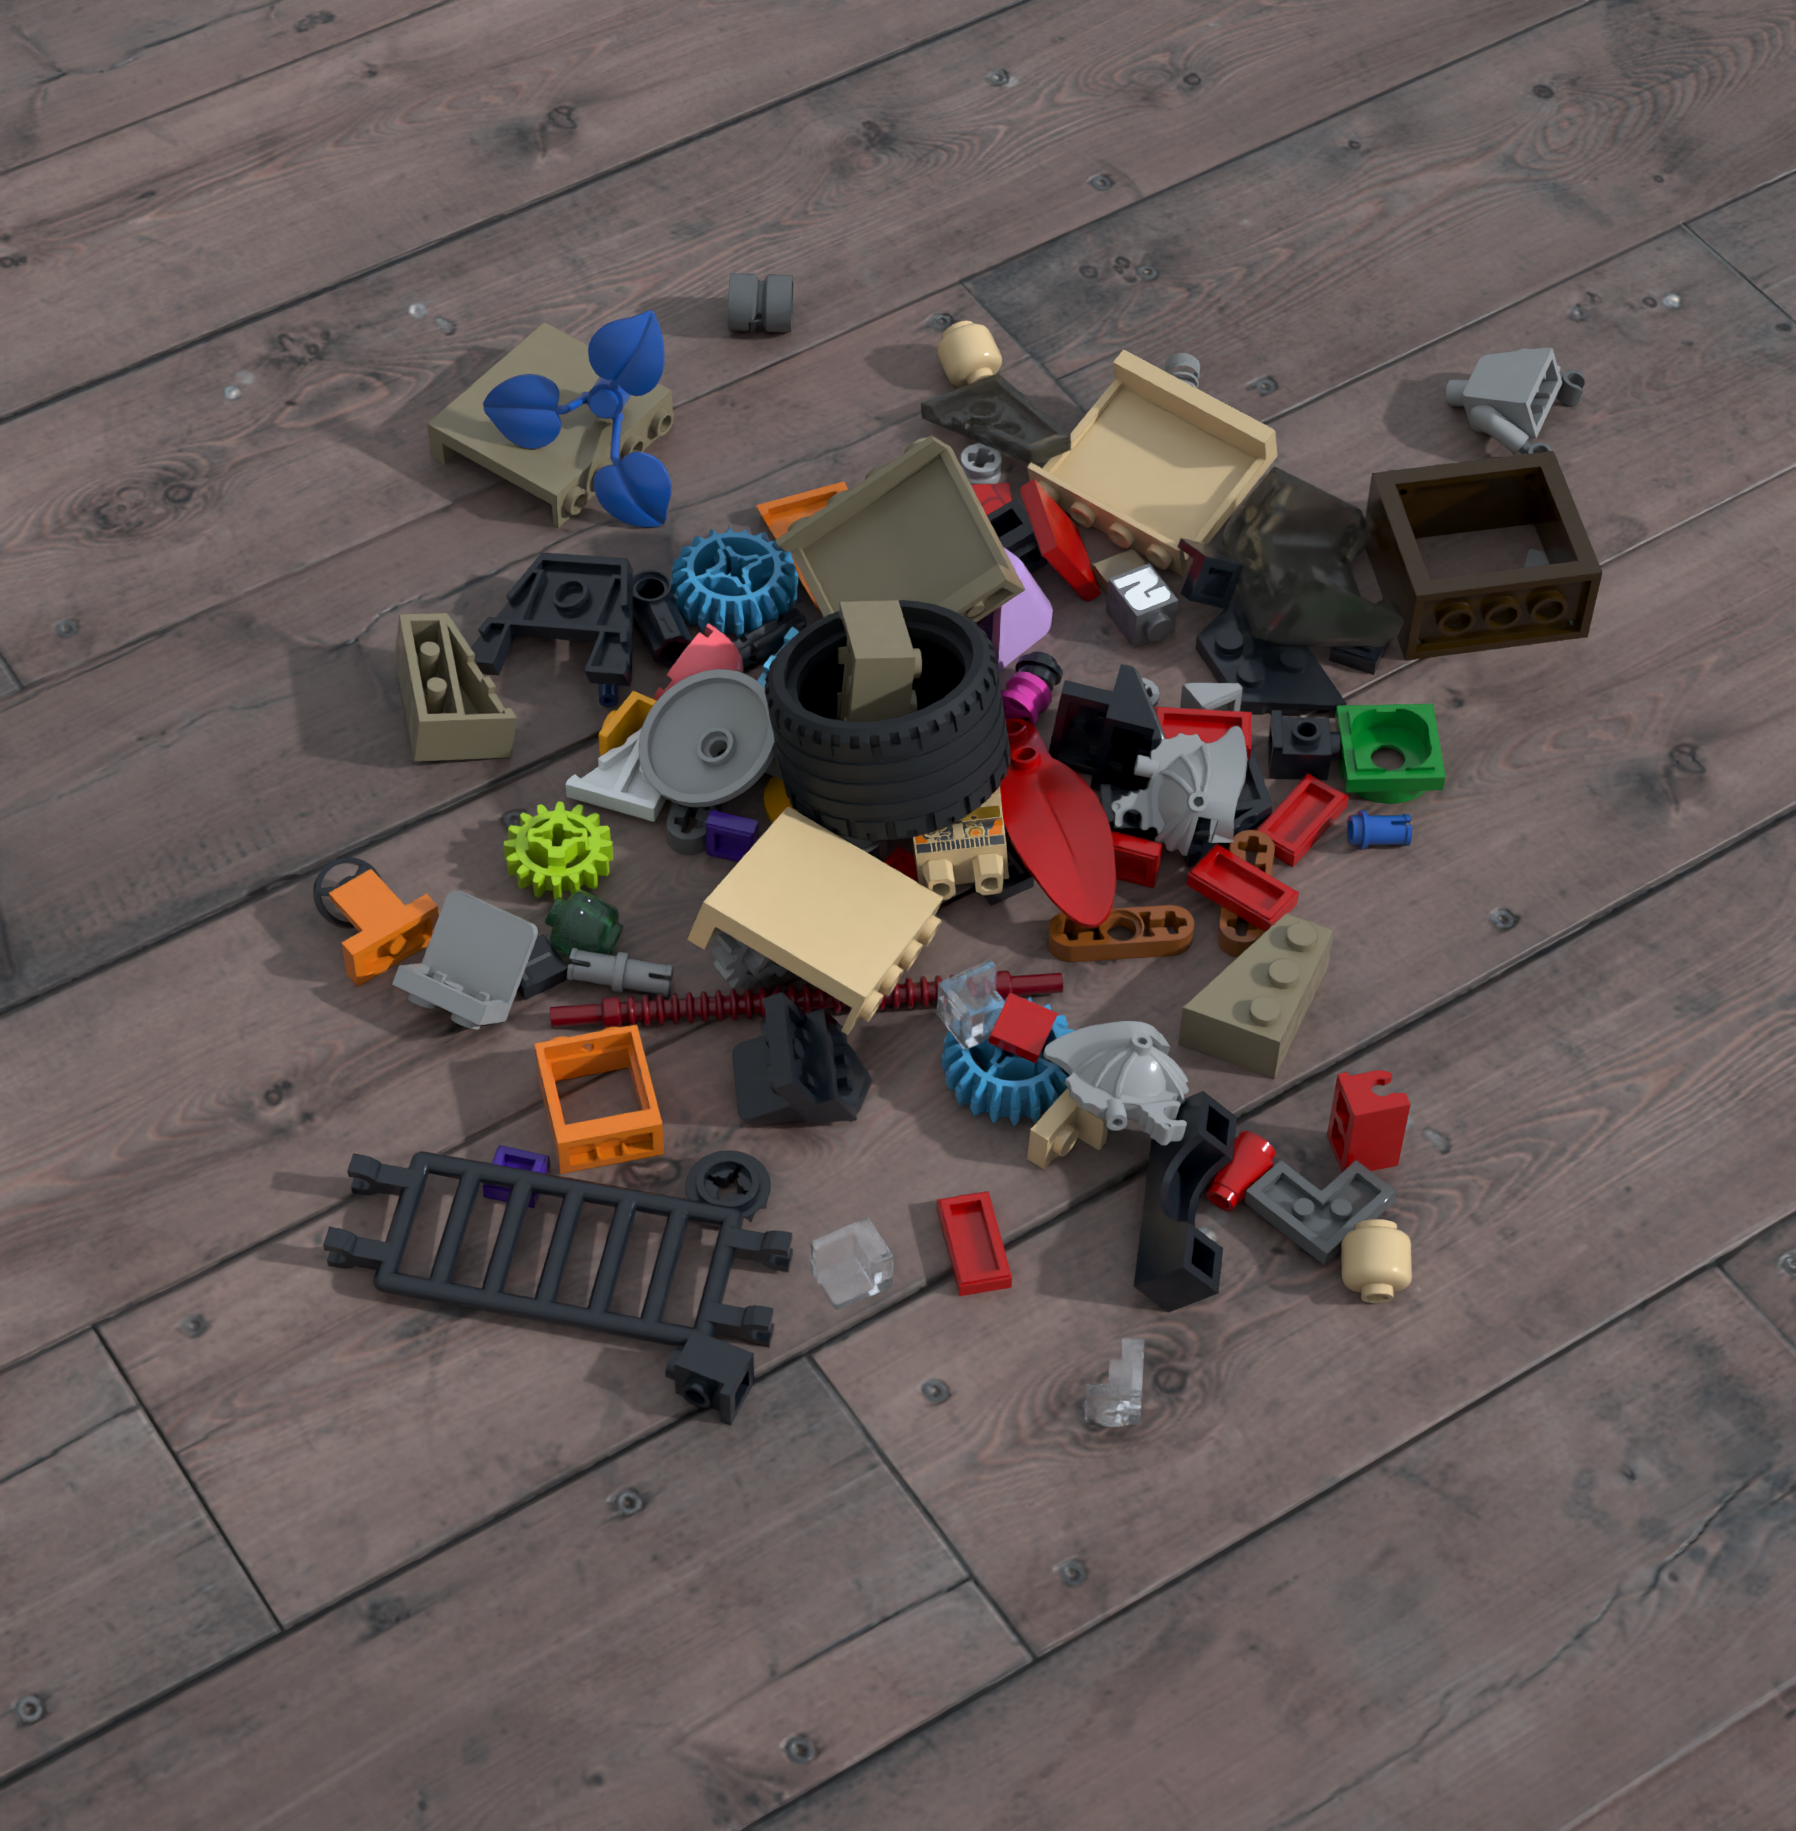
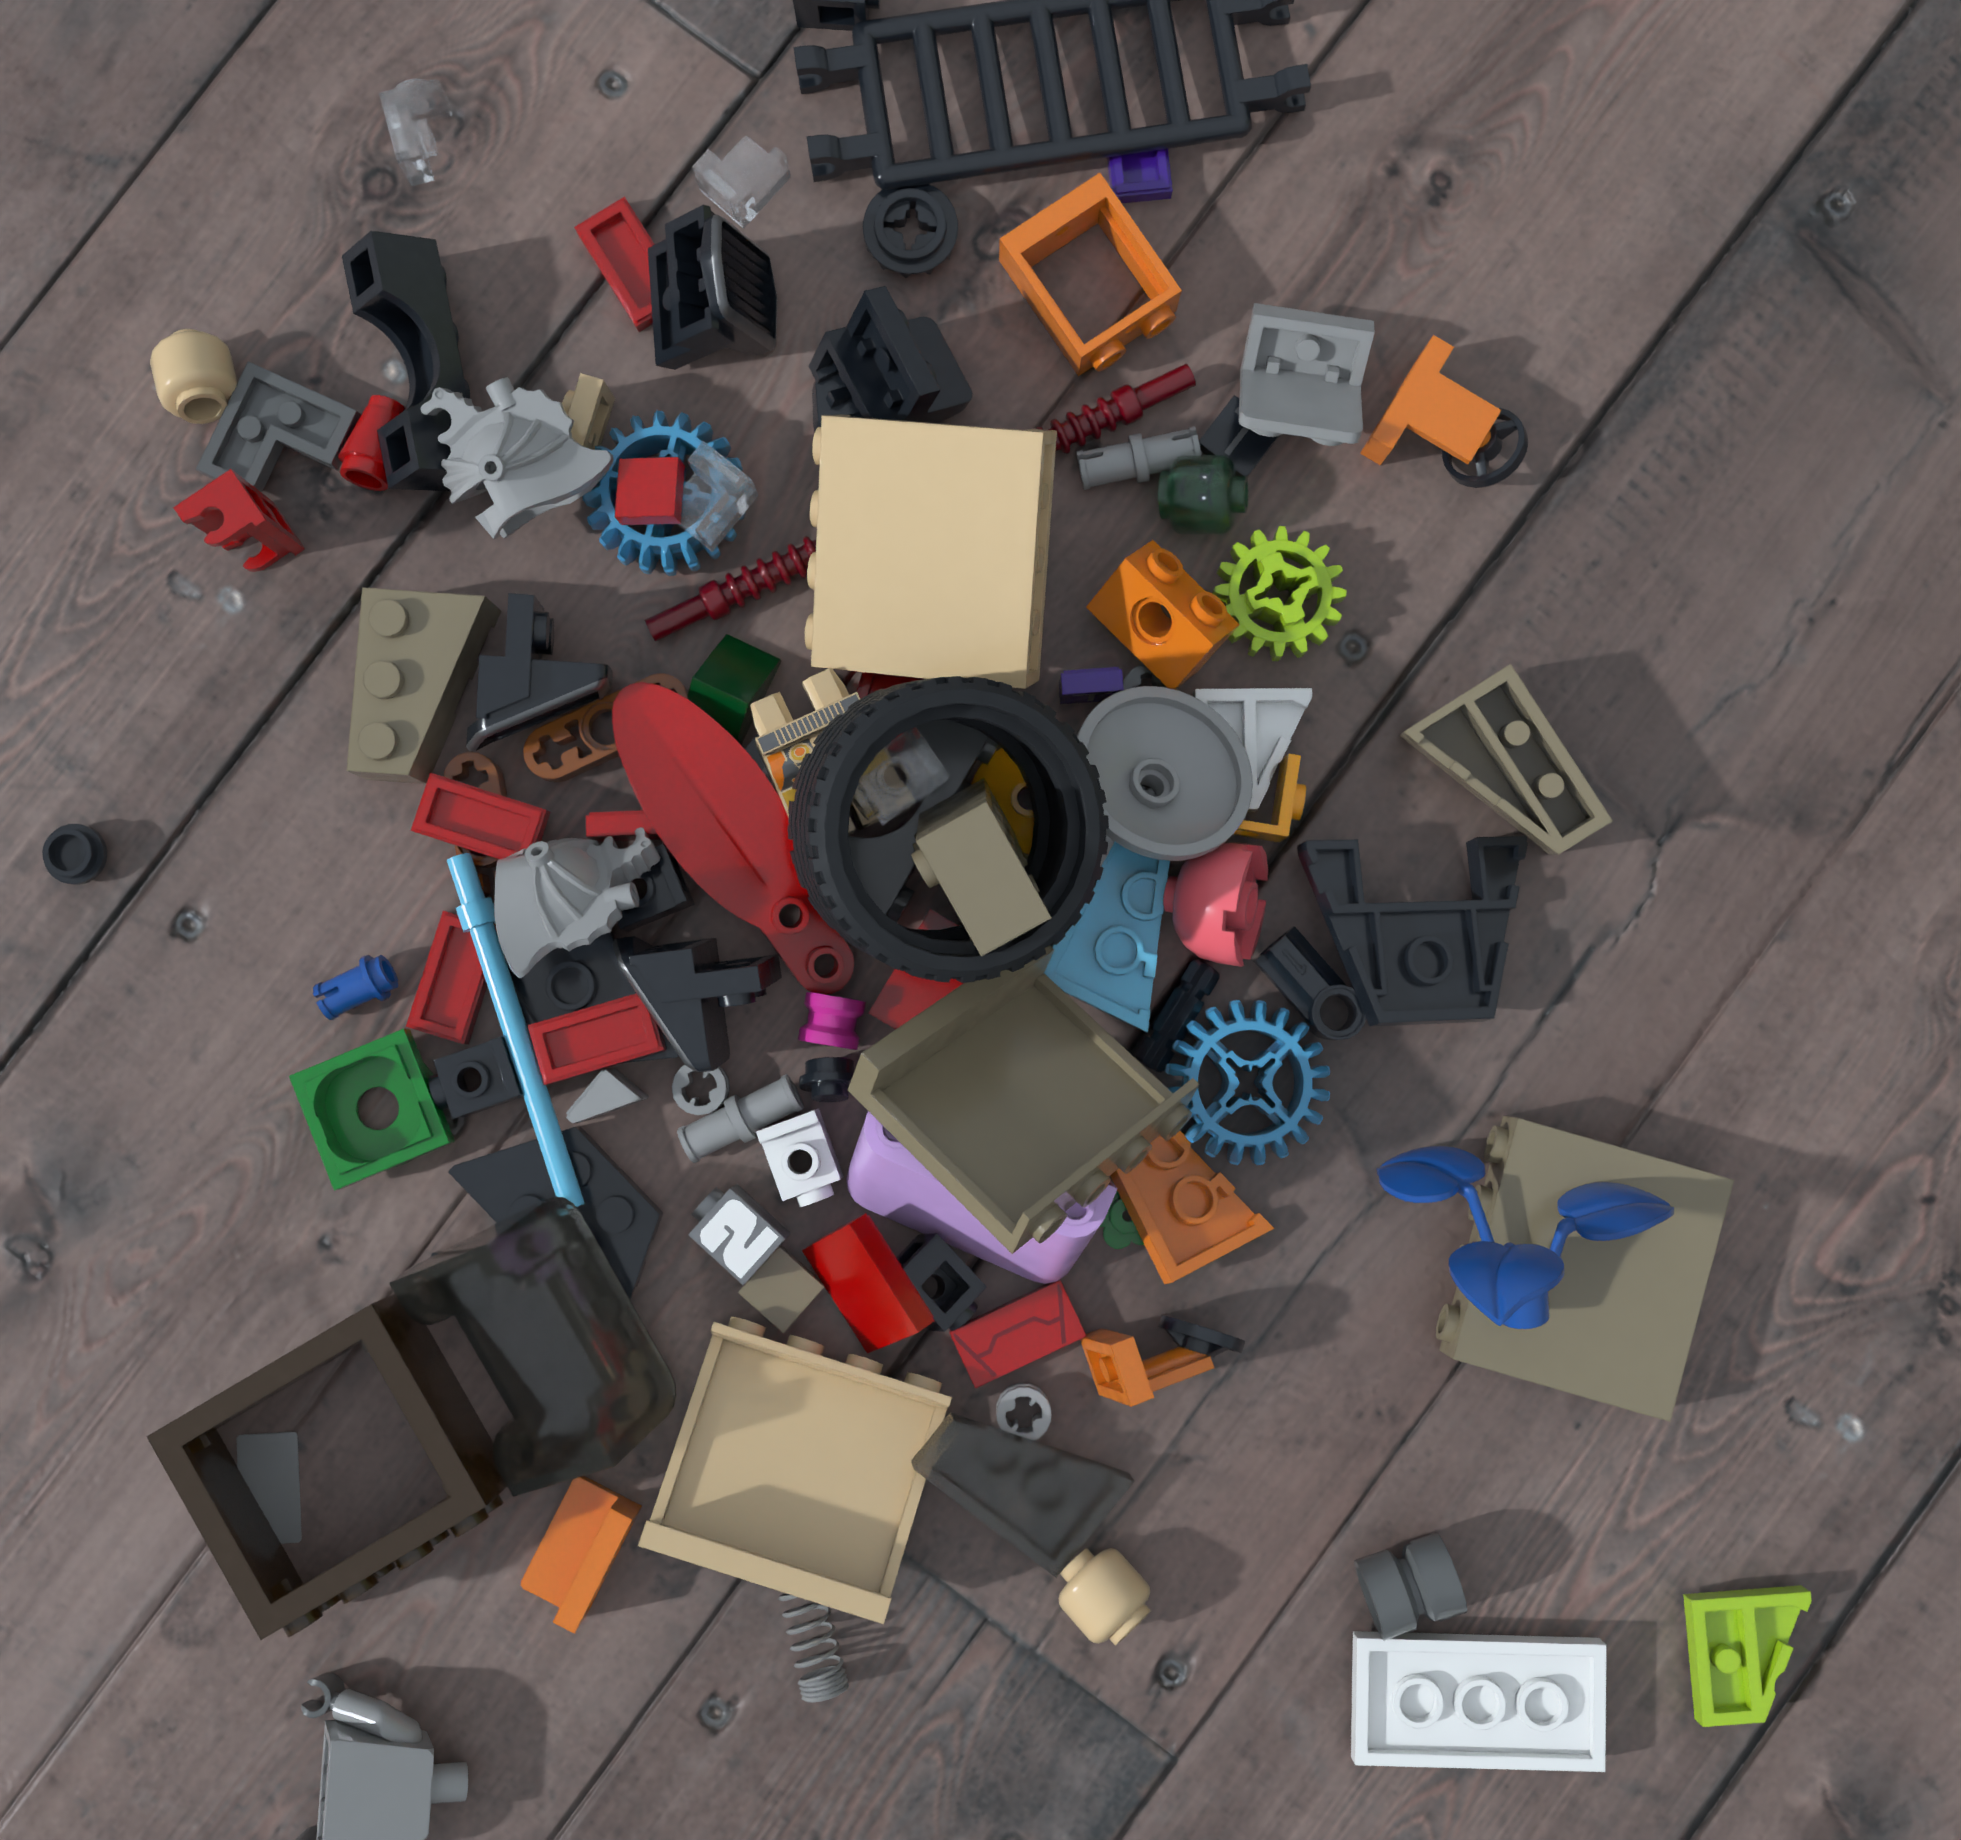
camera: 160 degrees right, 35 degrees up
(560, 223) = (1739, 1650): none -> lime wing
(656, 852) = (1133, 613): none -> orange brick
(738, 239) = (1479, 1701): none -> white plate
(864, 443) = (1131, 1381): none -> orange piece
(921, 1165) = (709, 291): none -> black piece
(1011, 923) = (732, 681): none -> dark green slope
(1079, 625) = (808, 1134): none -> white brick
(1104, 670) = (740, 1118): none -> light grey pin
(1165, 952) = (524, 688): none -> black piece
(1211, 574) = (661, 1310): black panel -> none
(1265, 823) = (478, 918): none -> medium azure bar
(1330, 466) = (579, 1549): none -> orange panel
(1579, 978) = (74, 854): none -> black plate

